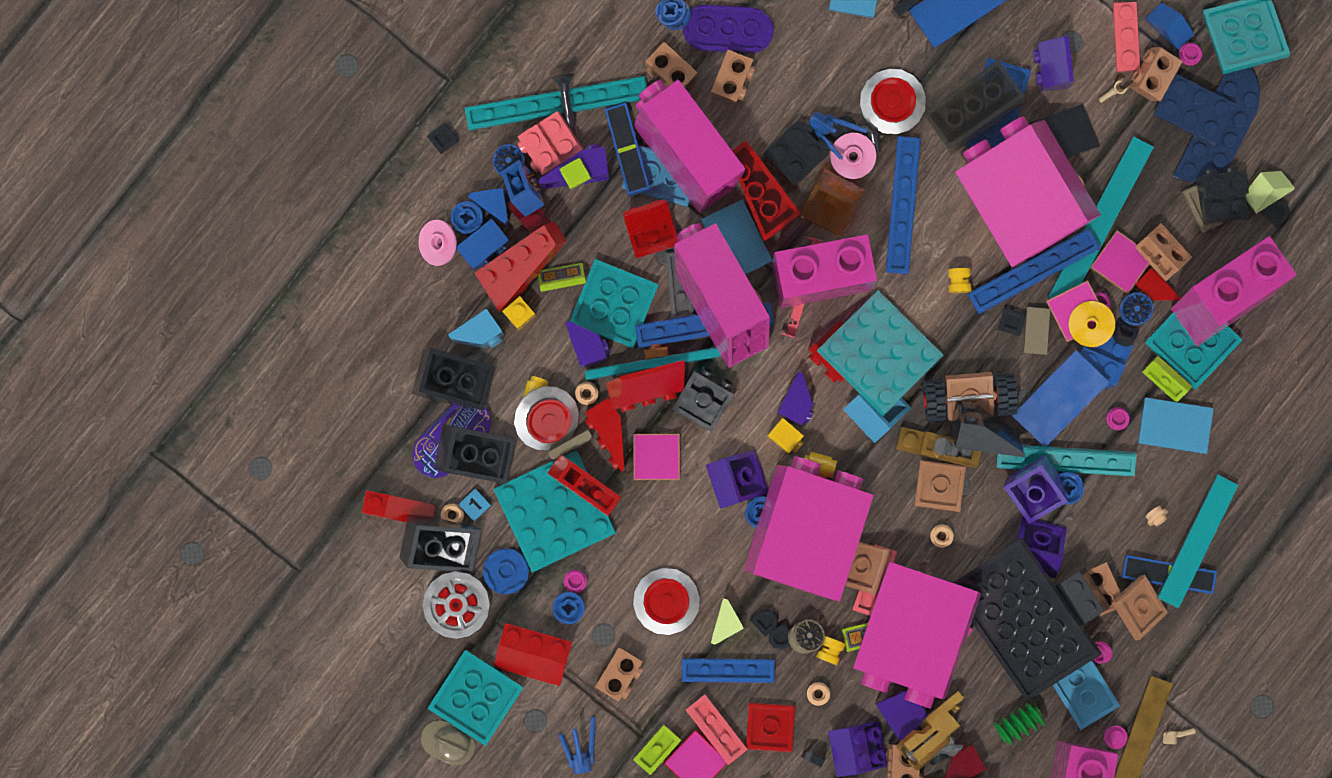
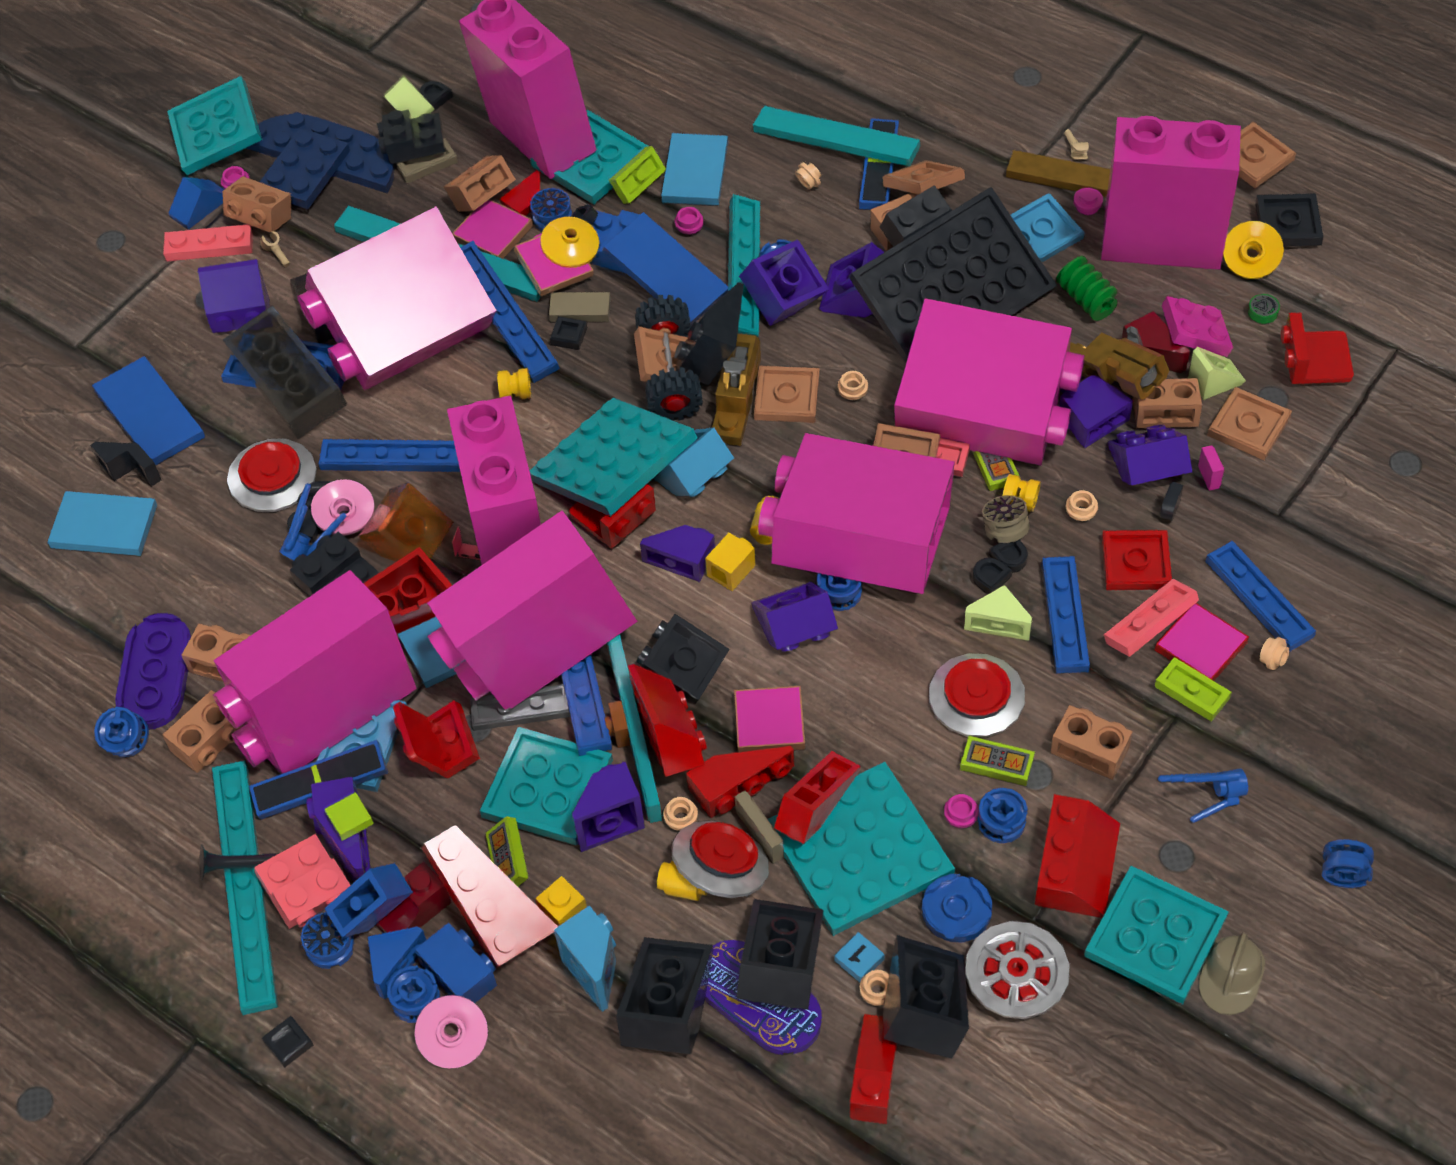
camera: 90 degrees left, 30 degrees down
(612, 609) = (997, 760): none -> tile

